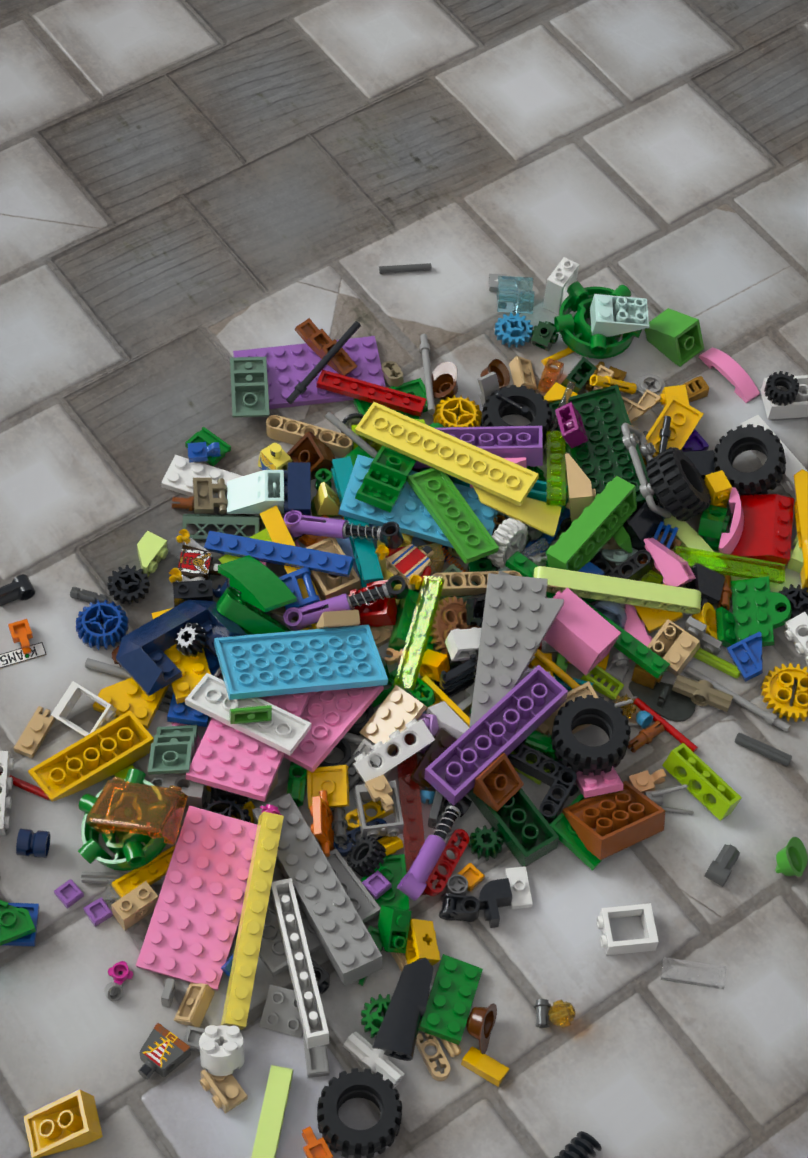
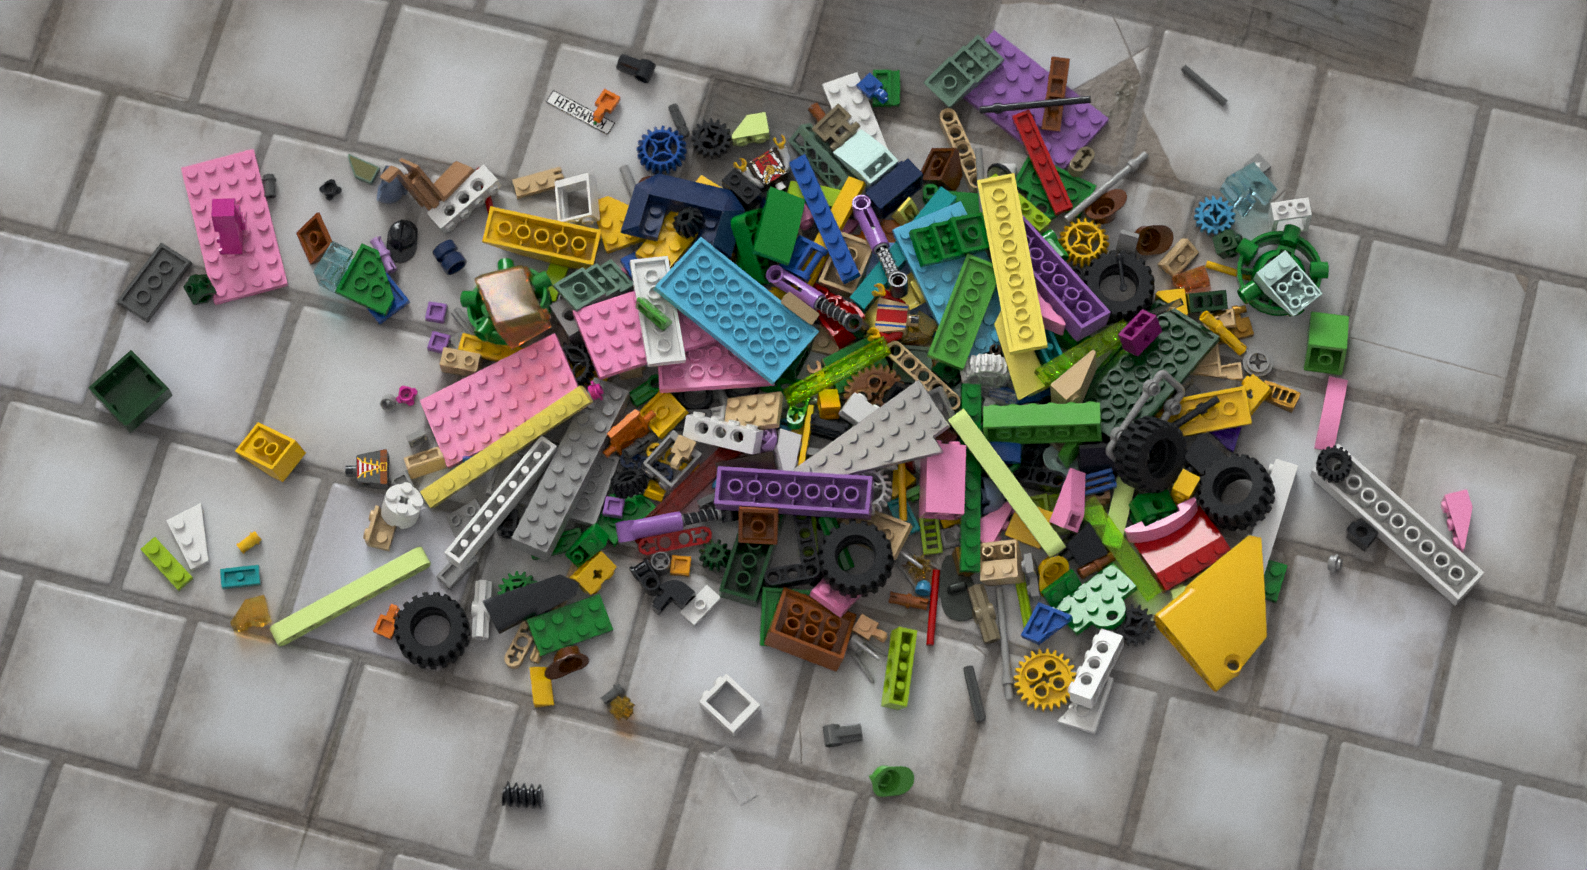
camera: 60 degrees right, 15 degrees up
(273, 458) = (912, 146): light yellow torso -> none

